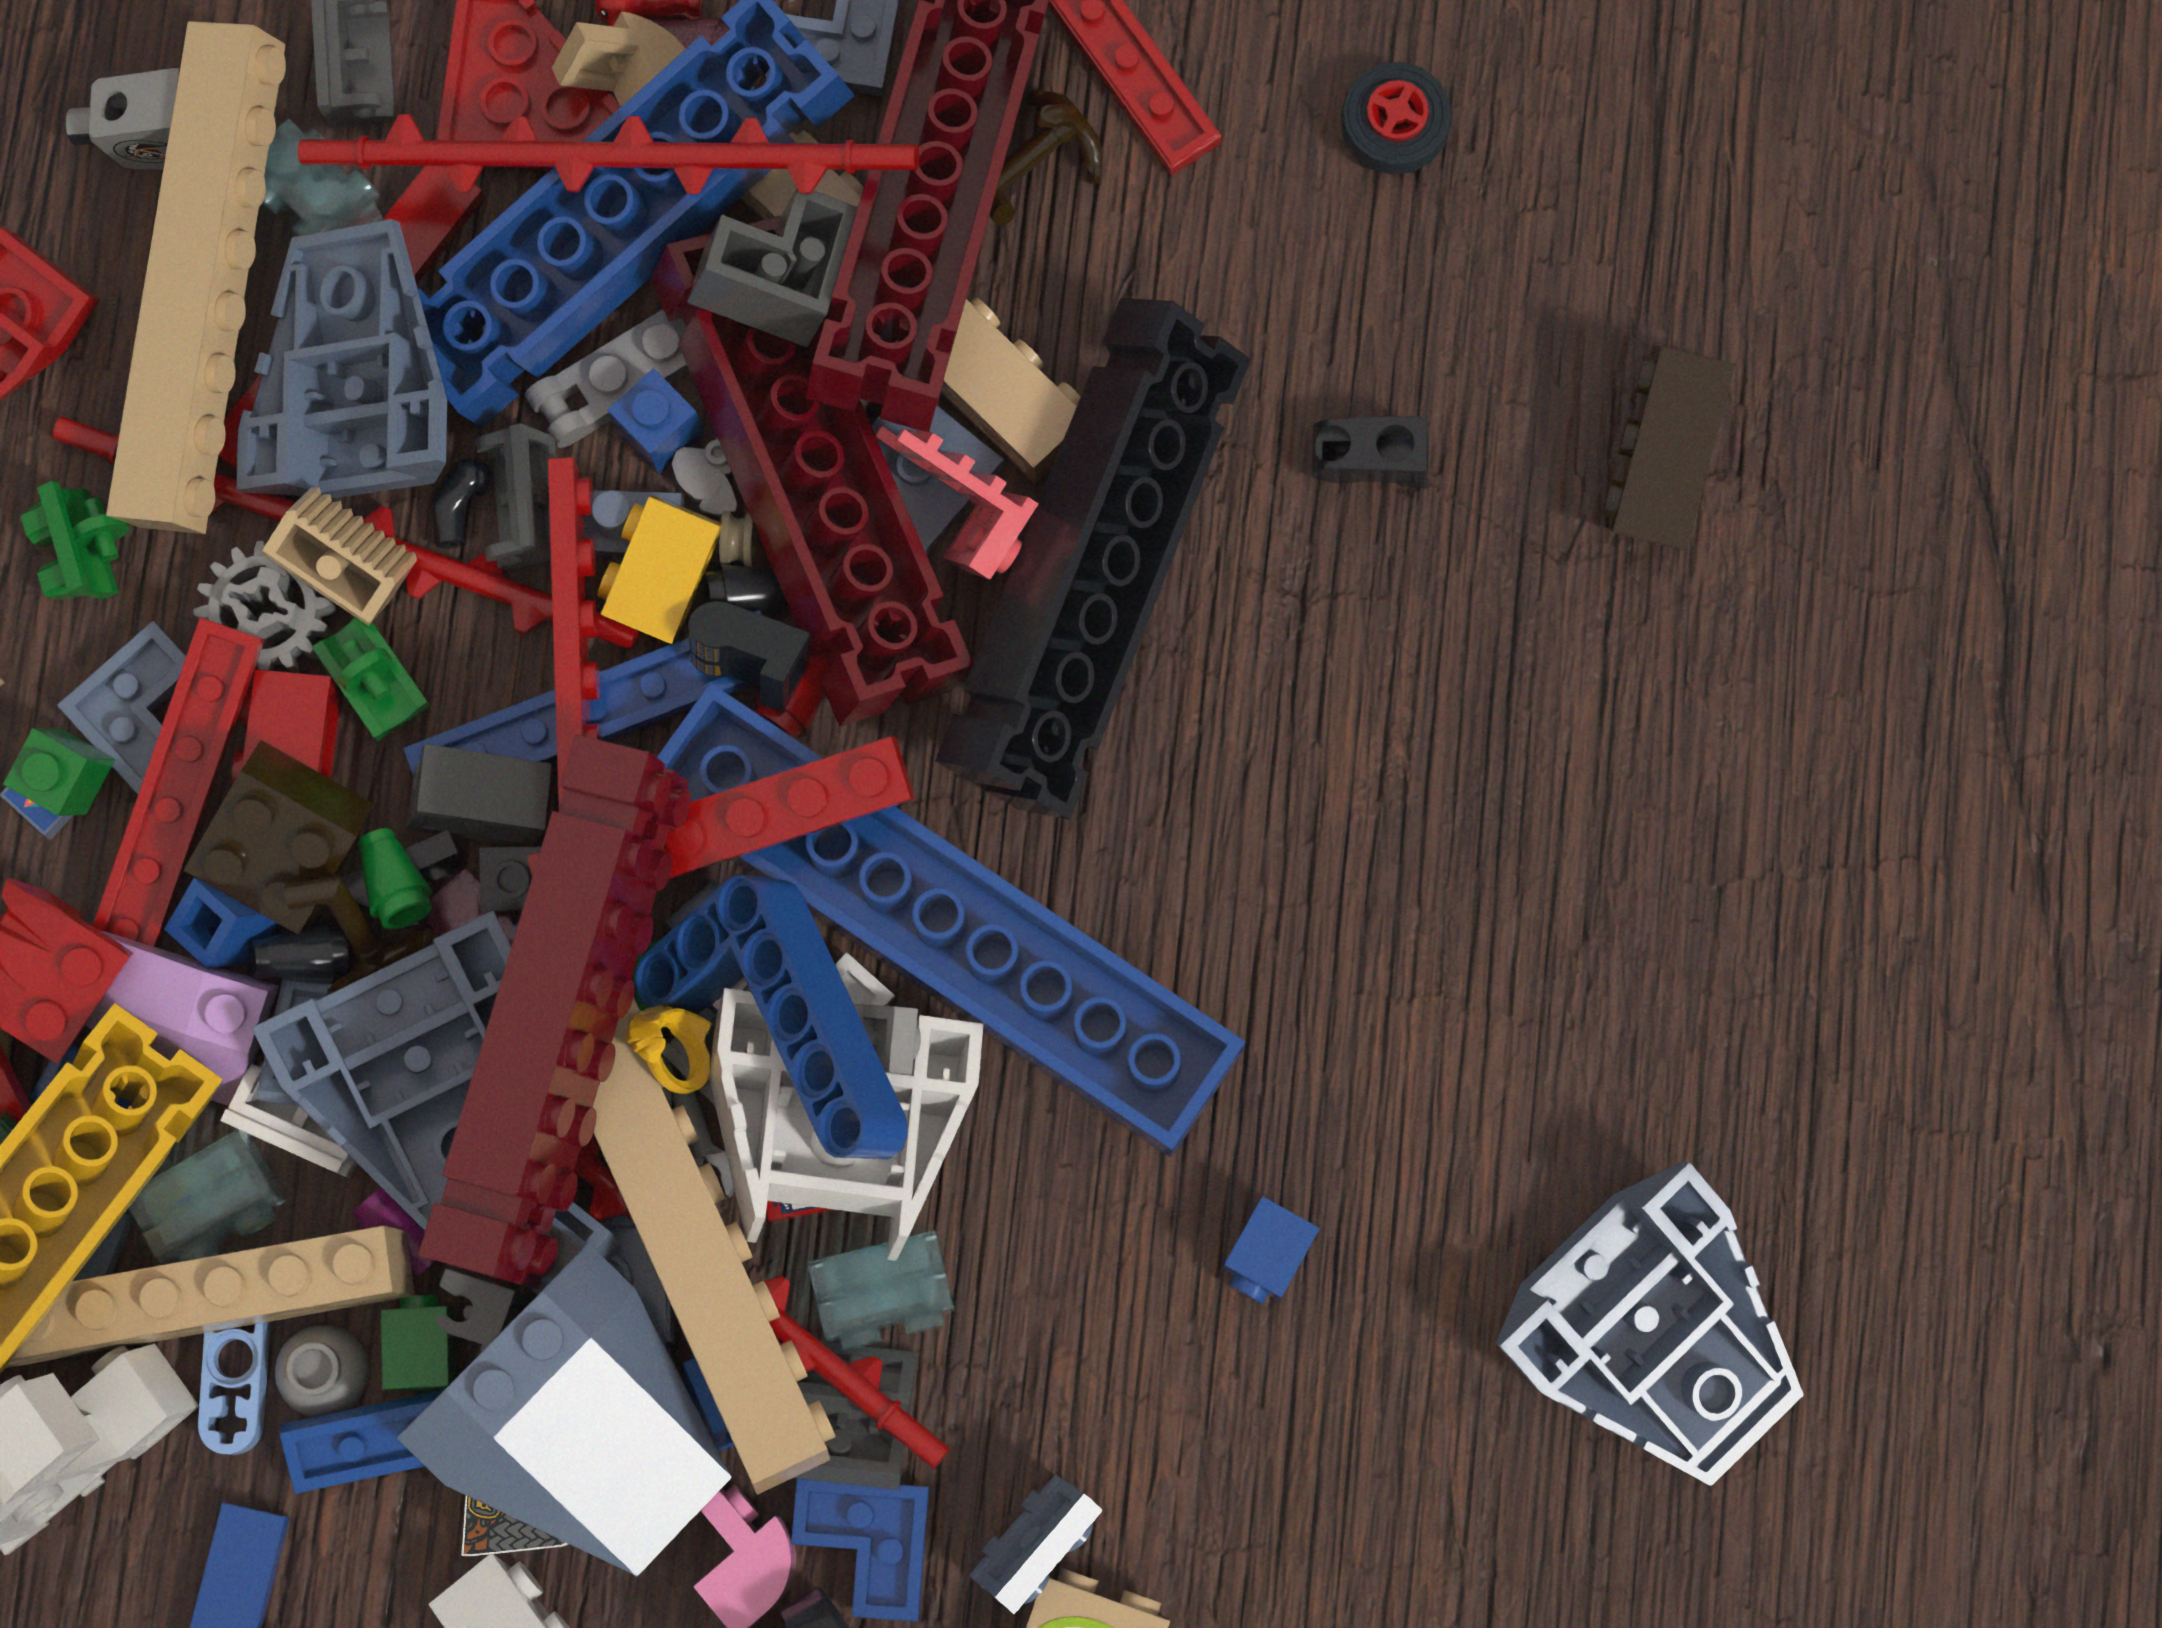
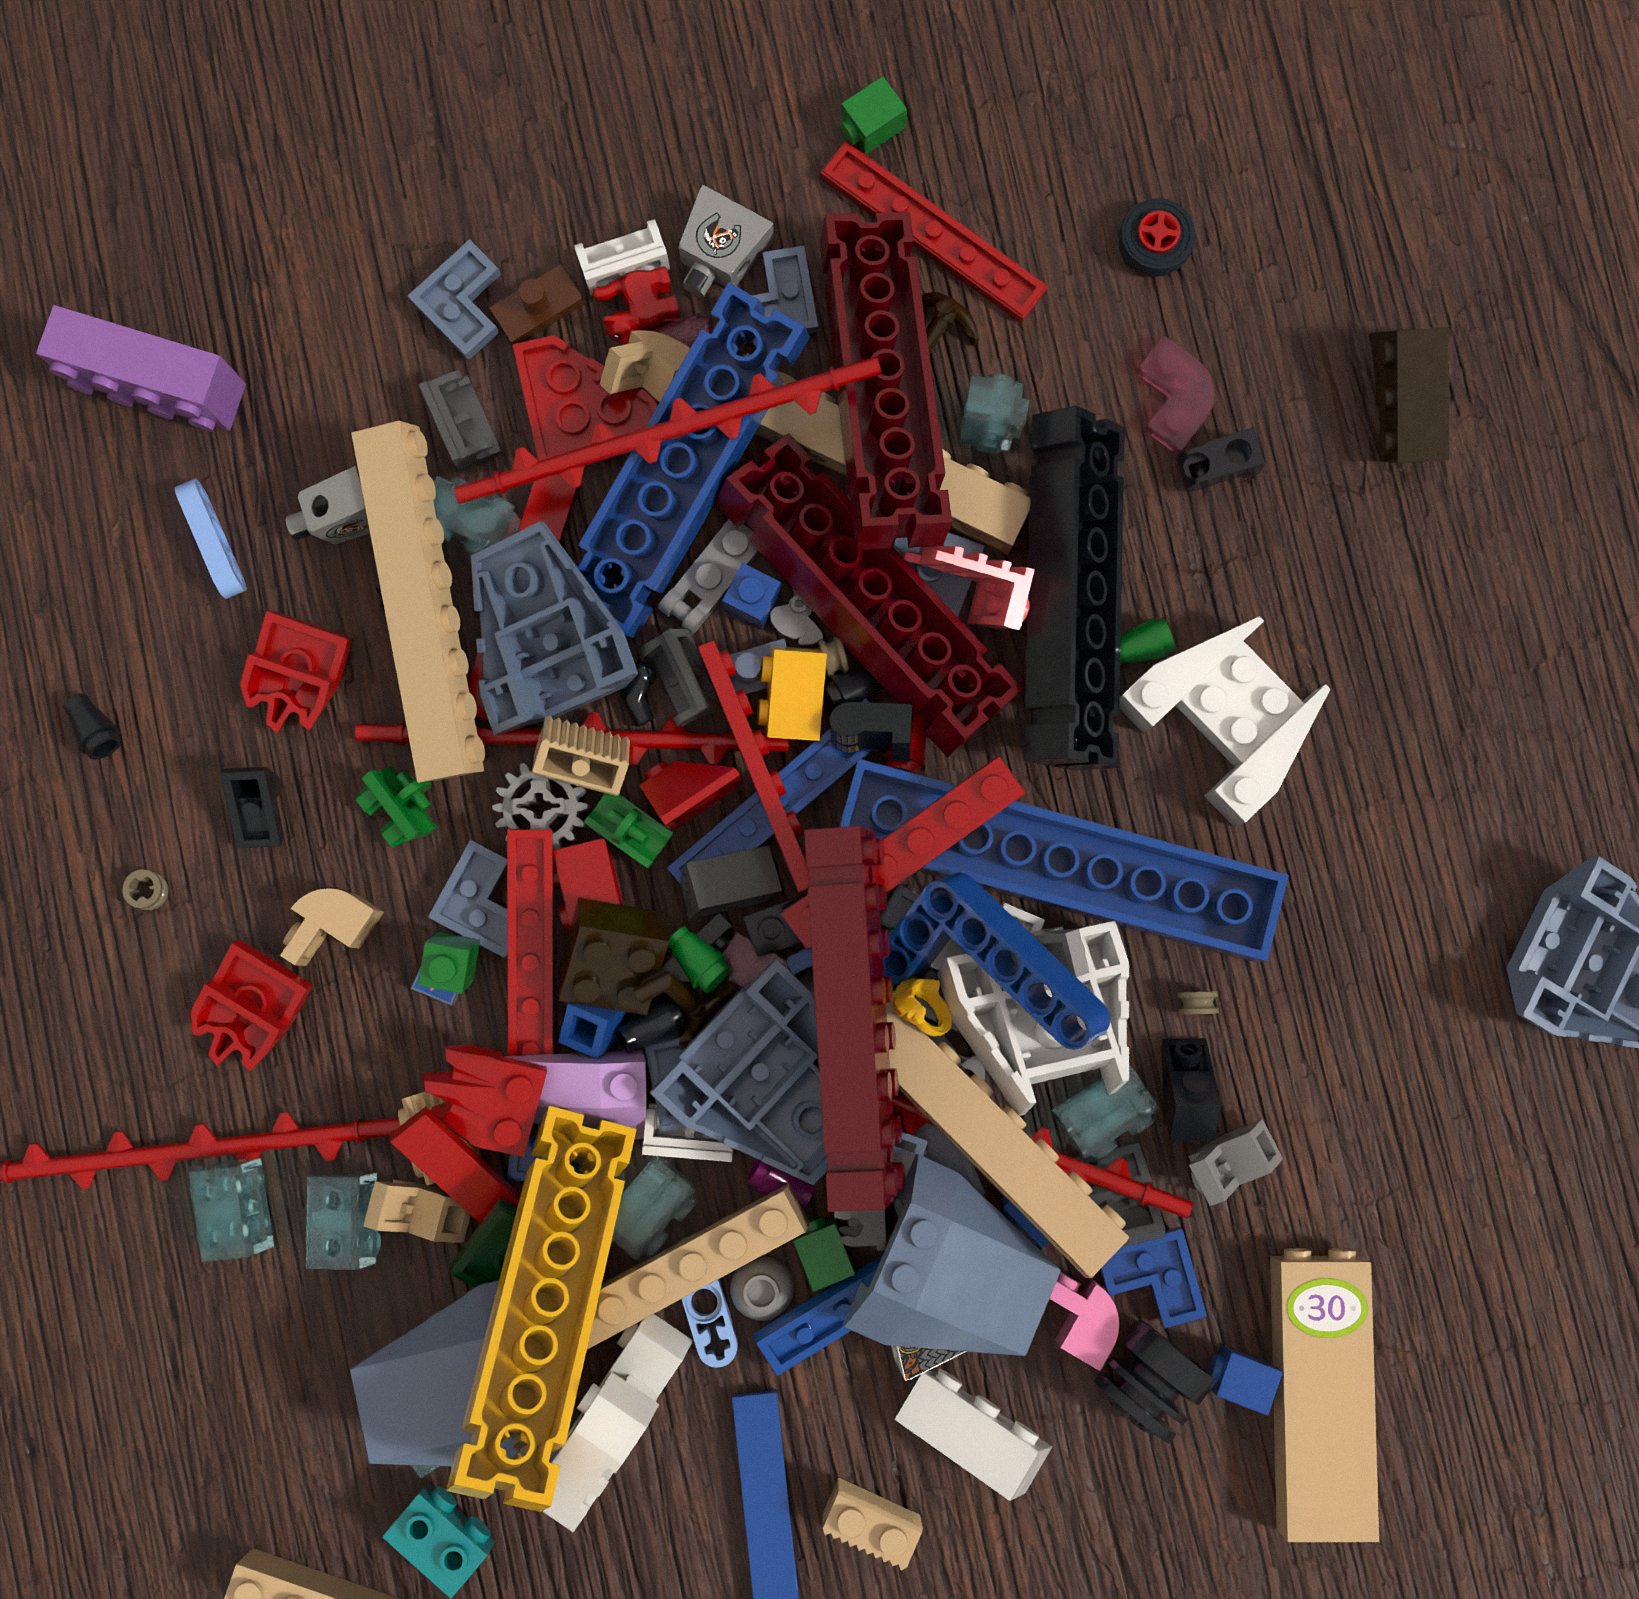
camera: 25 degrees left, 5 degrees up
(469, 654) = (687, 789): none -> red slope
(777, 279) = (811, 475): dark grey brick -> none
(1008, 1299) = (1189, 1090): none -> black slope
(1032, 1417) = (1233, 1160): none -> light grey brick
(1048, 1528) = (1266, 1242): sand blue plate -> none
(1067, 1183) = (1198, 1003): none -> dark tan bush
(1071, 280) = (993, 413): none -> clear light blue brick
(1176, 664) = (1146, 642): none -> green cone
(1269, 790) = (1237, 708): none -> white wedge
(1269, 1252) = (1342, 1002): blue brick -> none
(1365, 343) = (1189, 393): none -> clear pink plate

